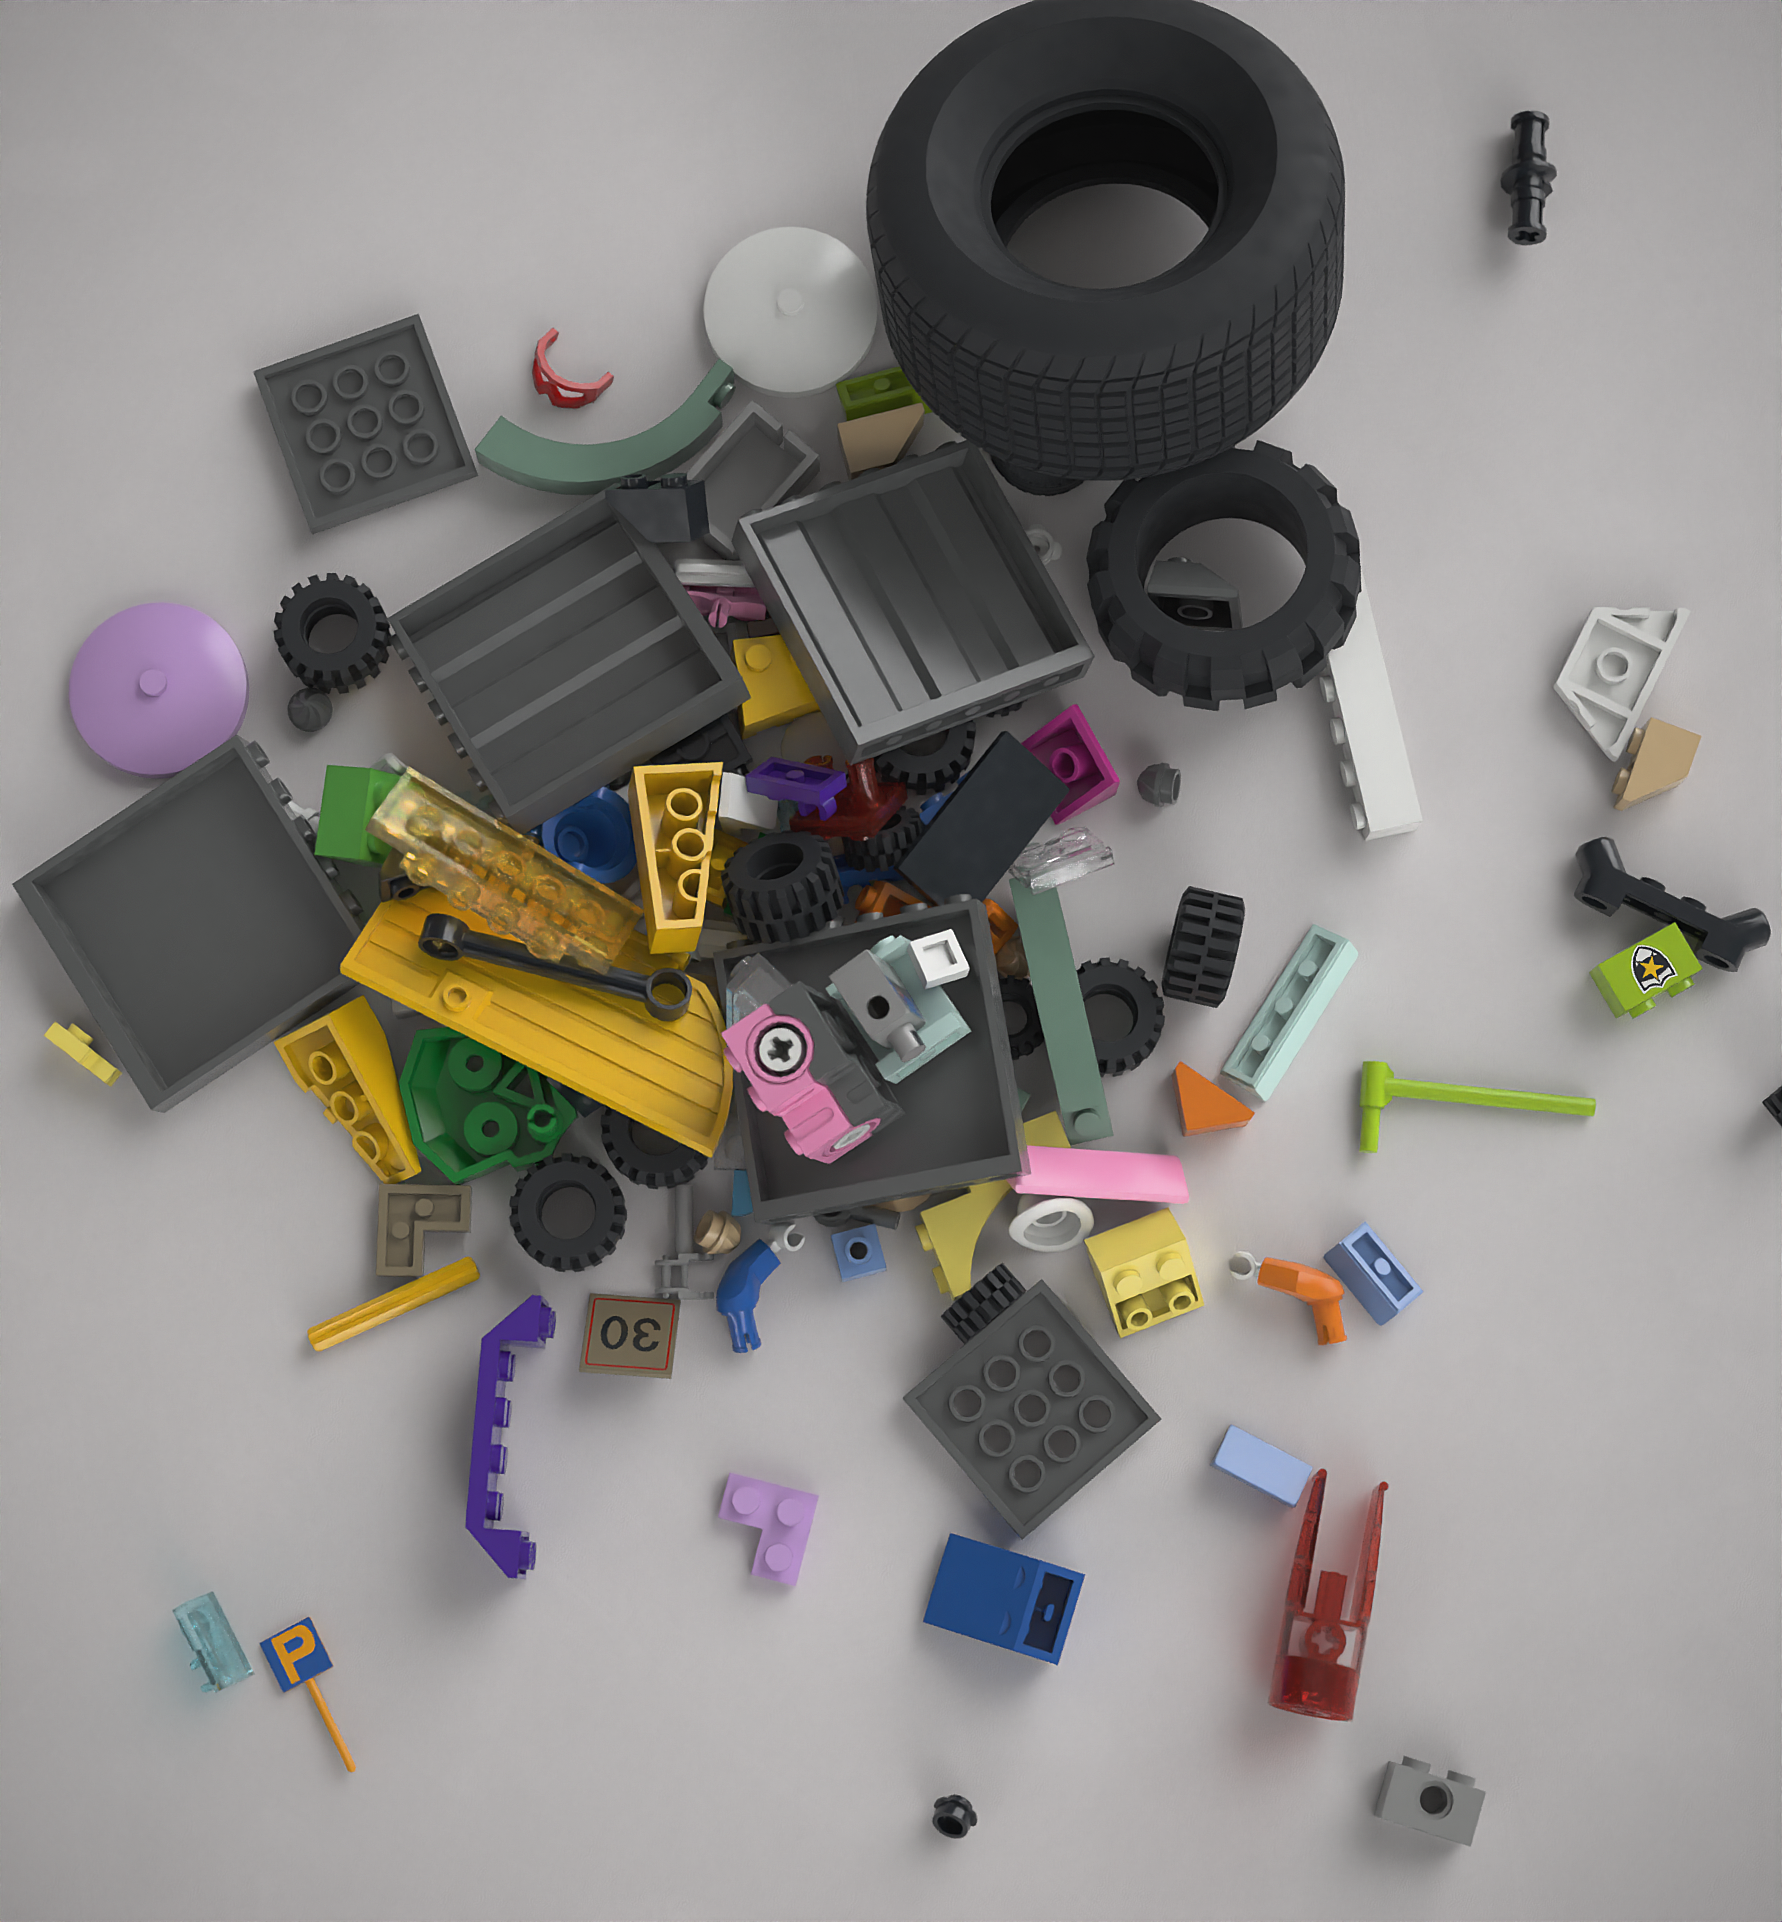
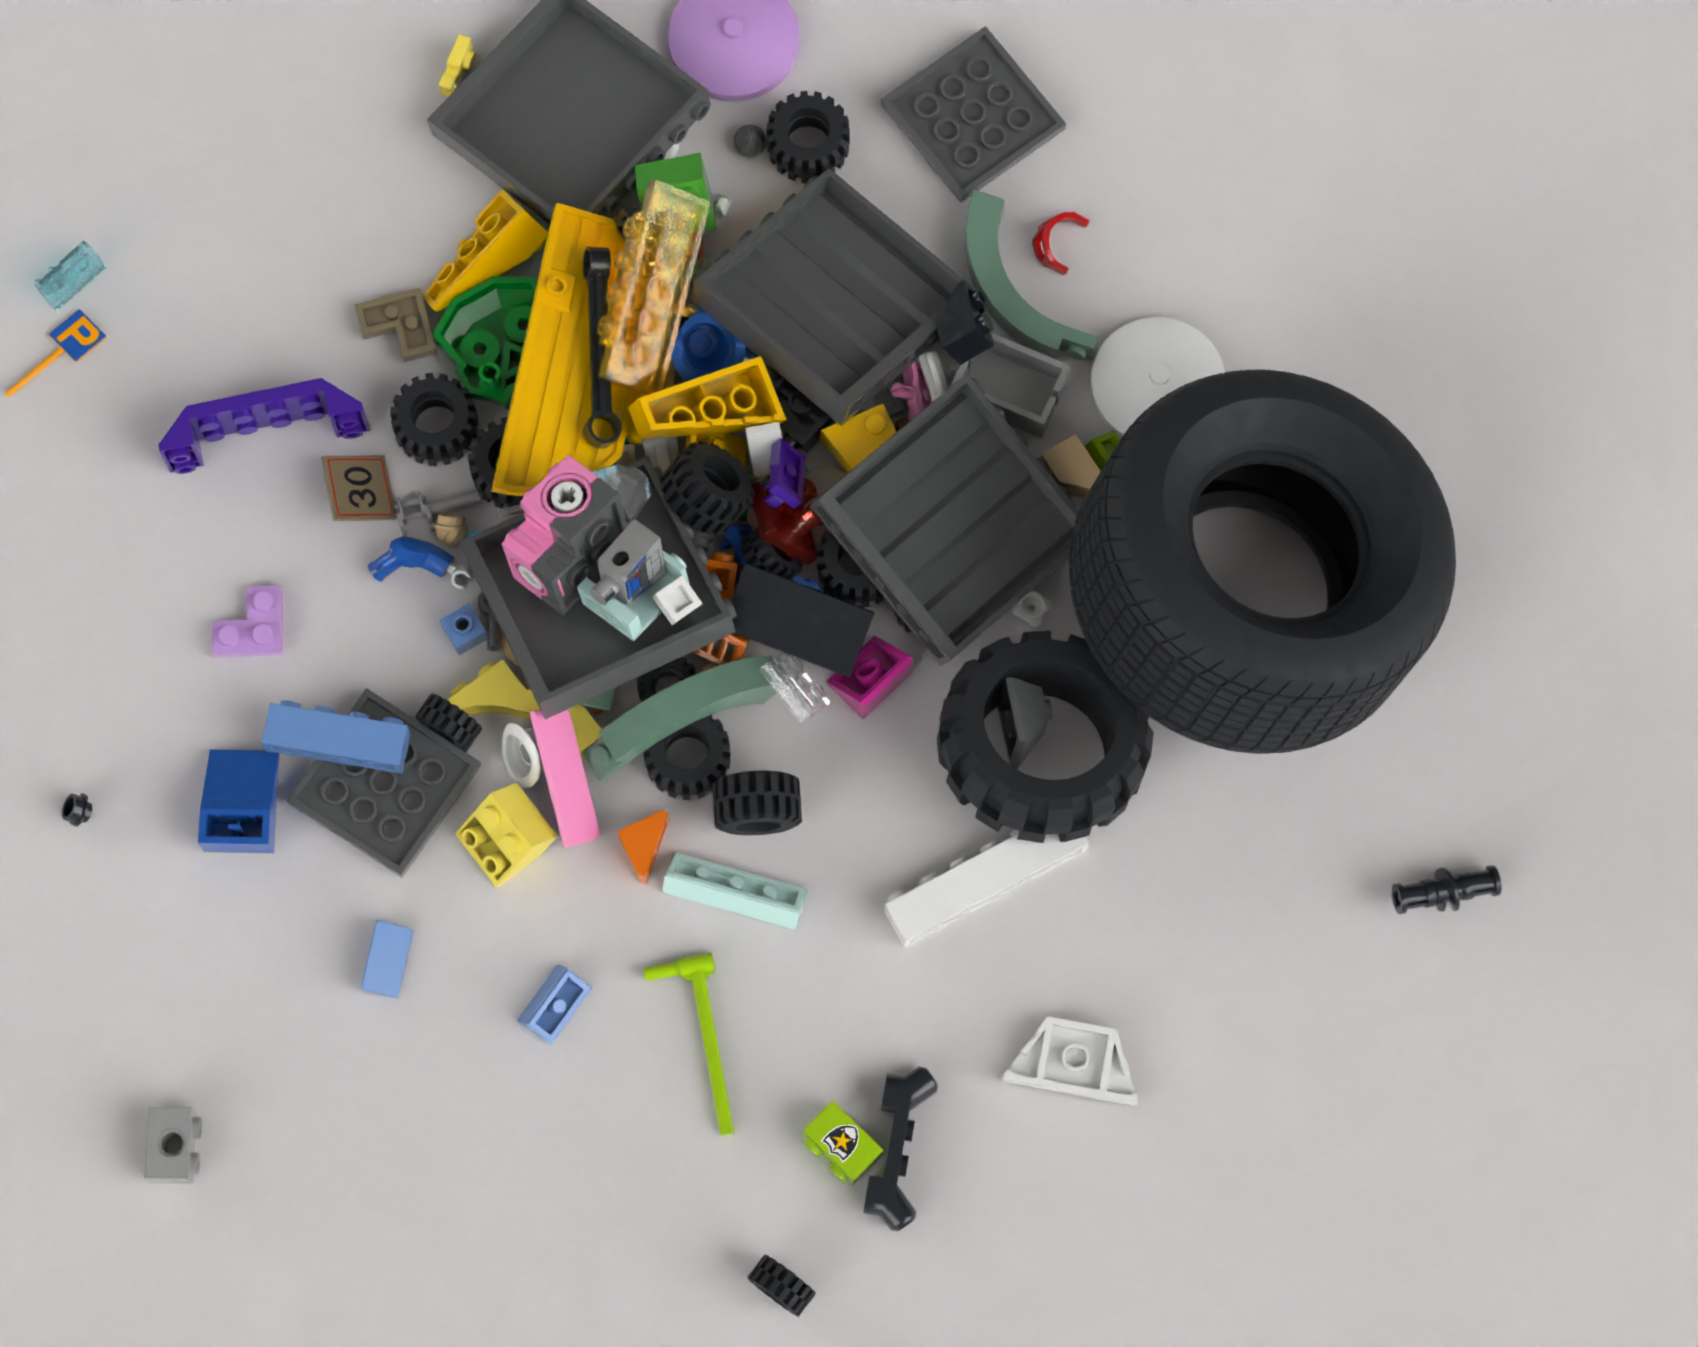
camera: 75 degrees right, 5 degrees down
(393, 1304) = (339, 325): yellow axle -> none
(965, 1449) = (336, 737): none -> medium blue brick
(1159, 784) = (877, 746): dark grey plate -> none
(1307, 1285) = (529, 951): orange arm -> none
(1315, 1682) = (236, 1033): clear red piece -> none
(1657, 764) = (1007, 1110): tan slope -> none

